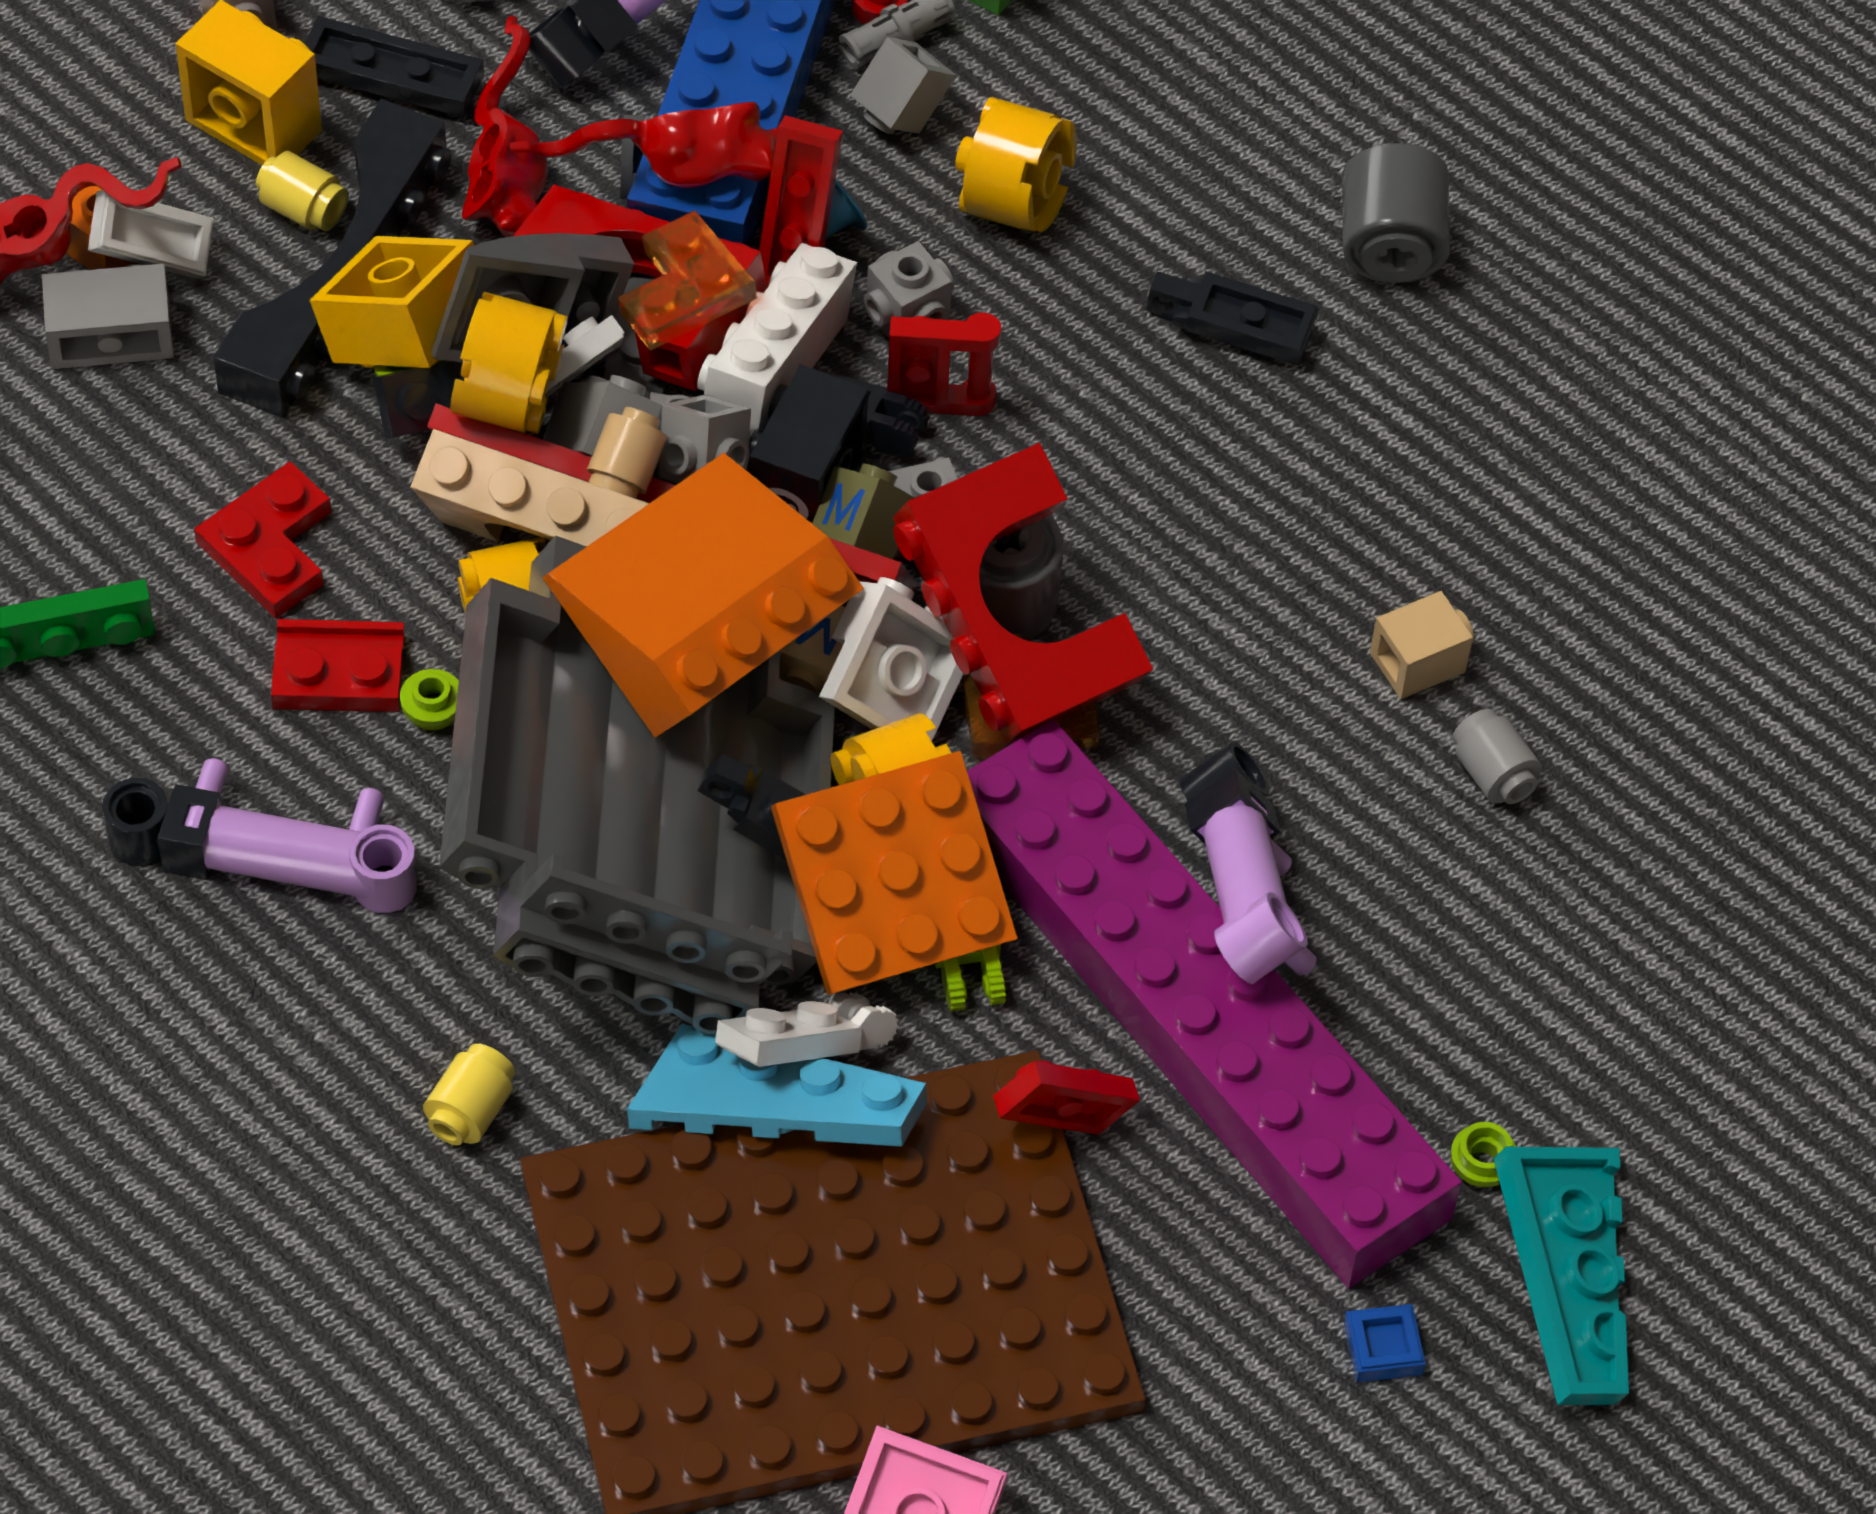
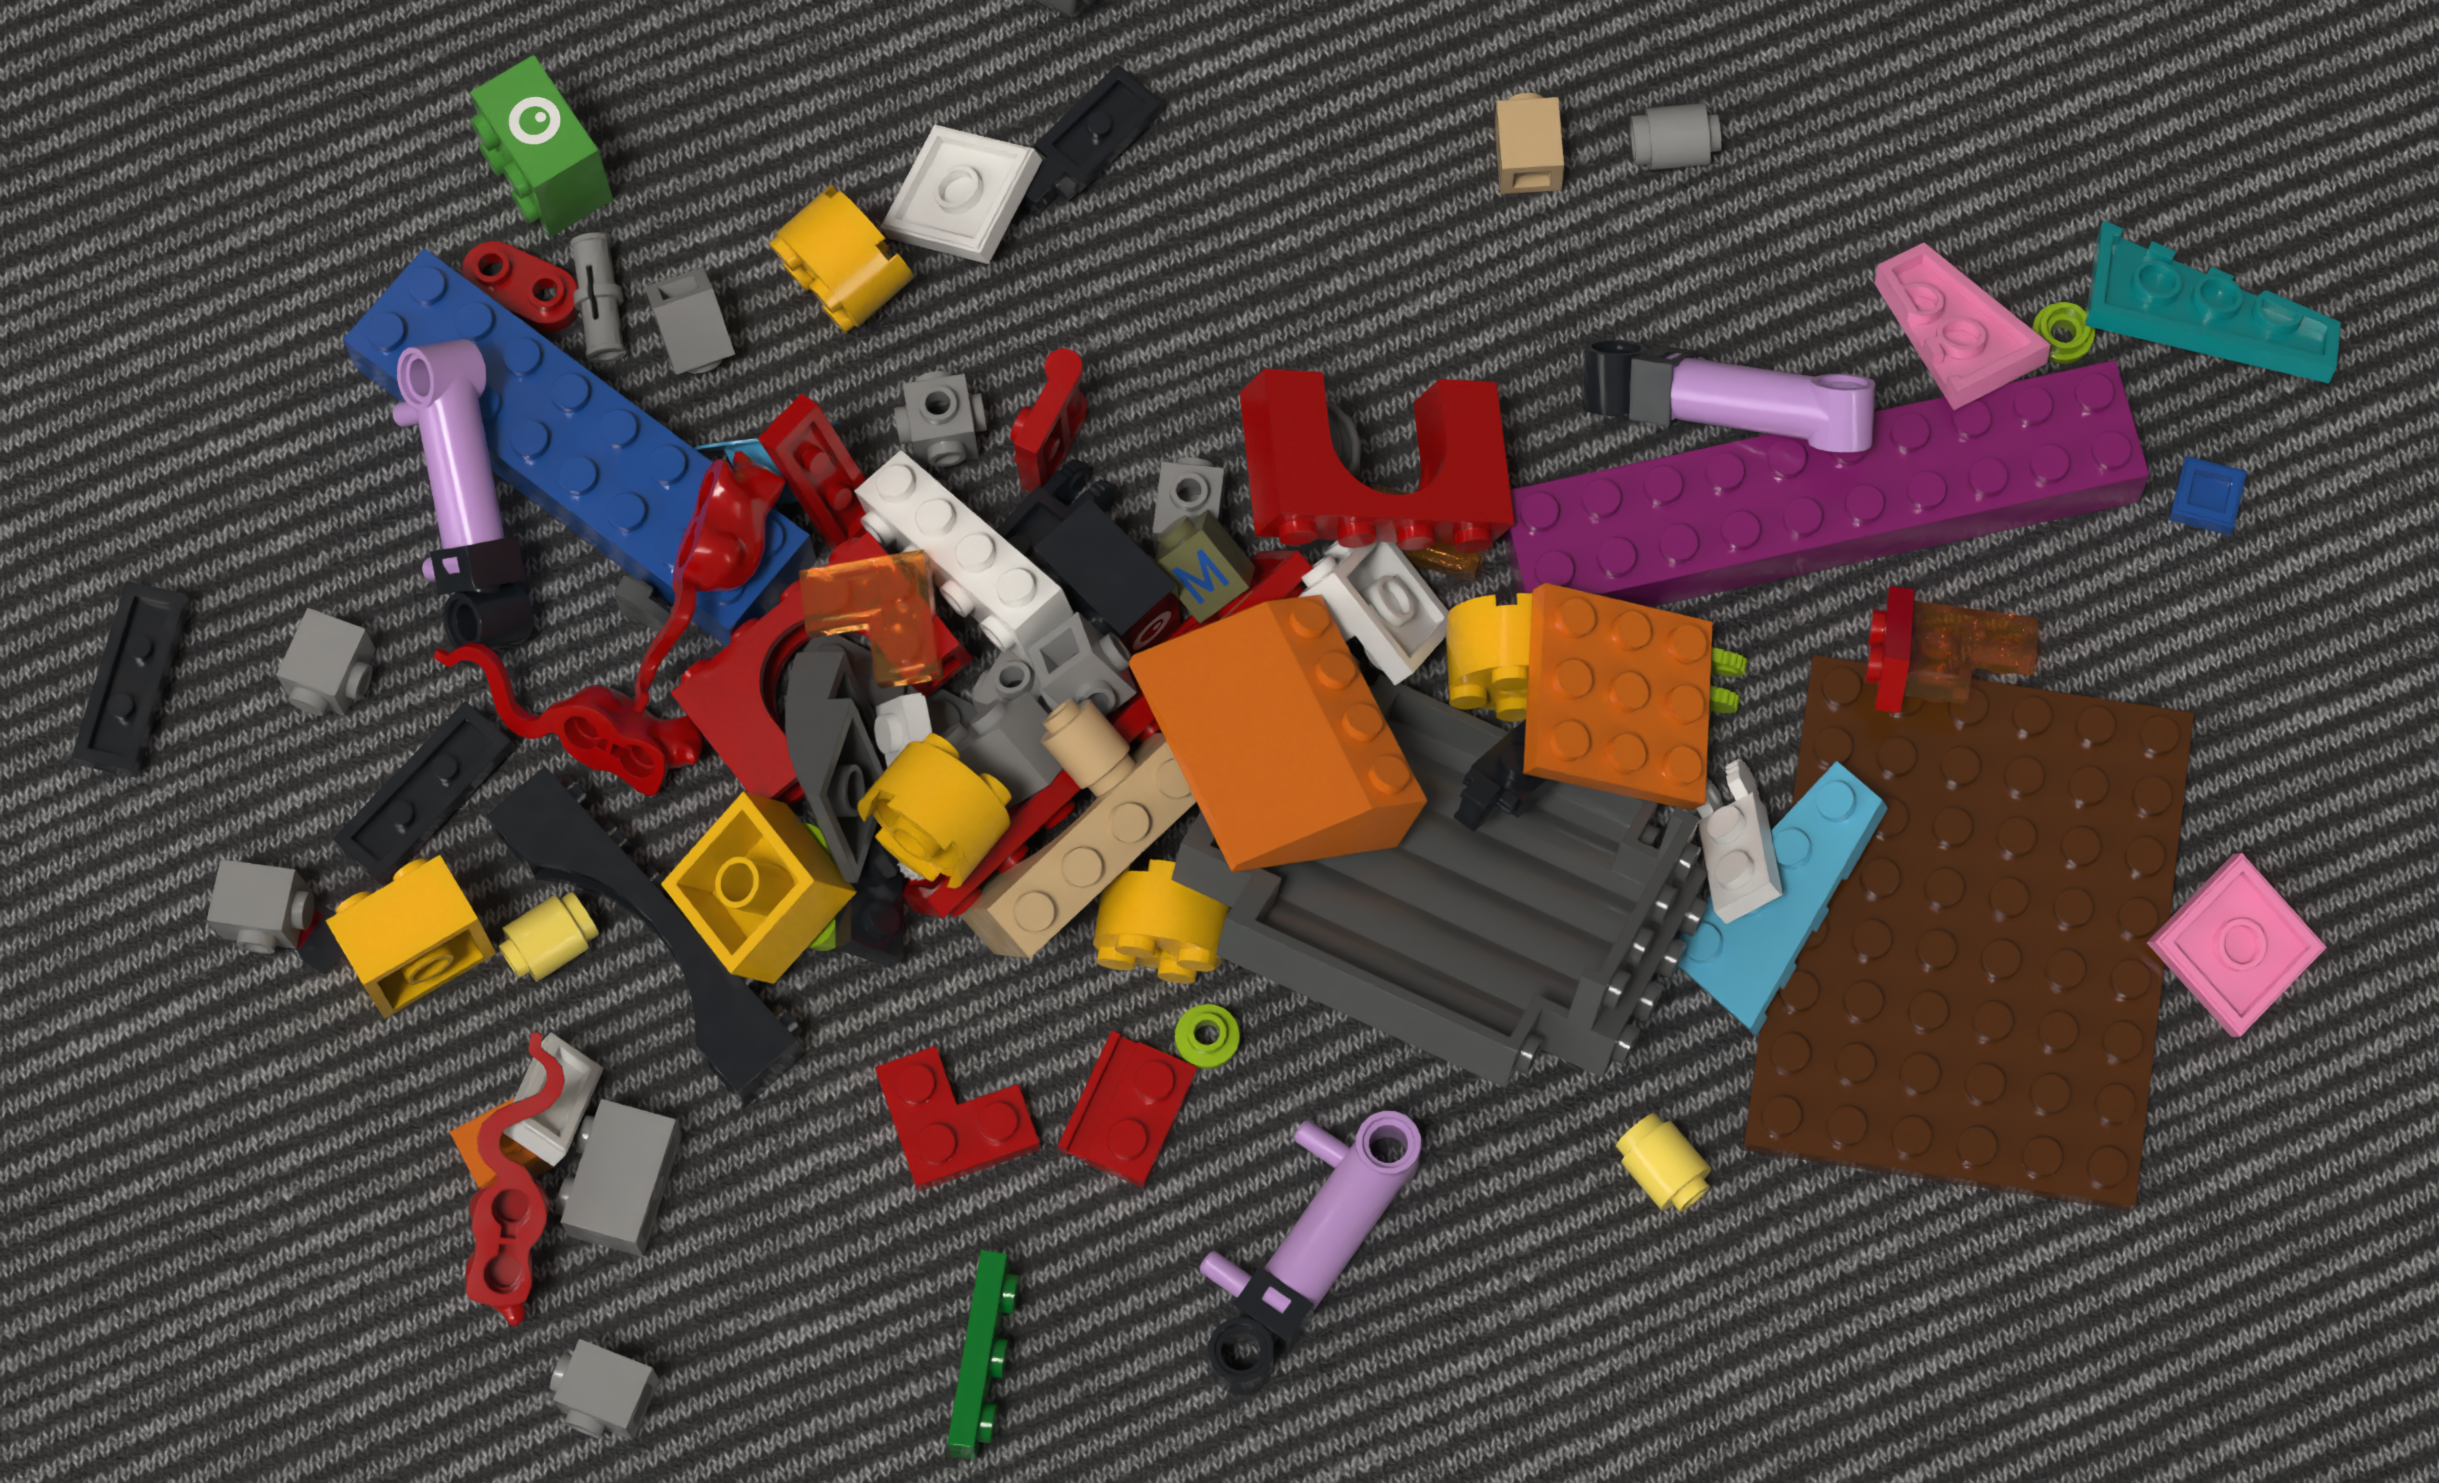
camera: 60 degrees left, 15 degrees up
(1109, 1153) = (1955, 639): none -> clear orange plate
(1131, 238) = (961, 194): none -> white tile
(1424, 1042) = (1956, 326): none -> bright pink wing

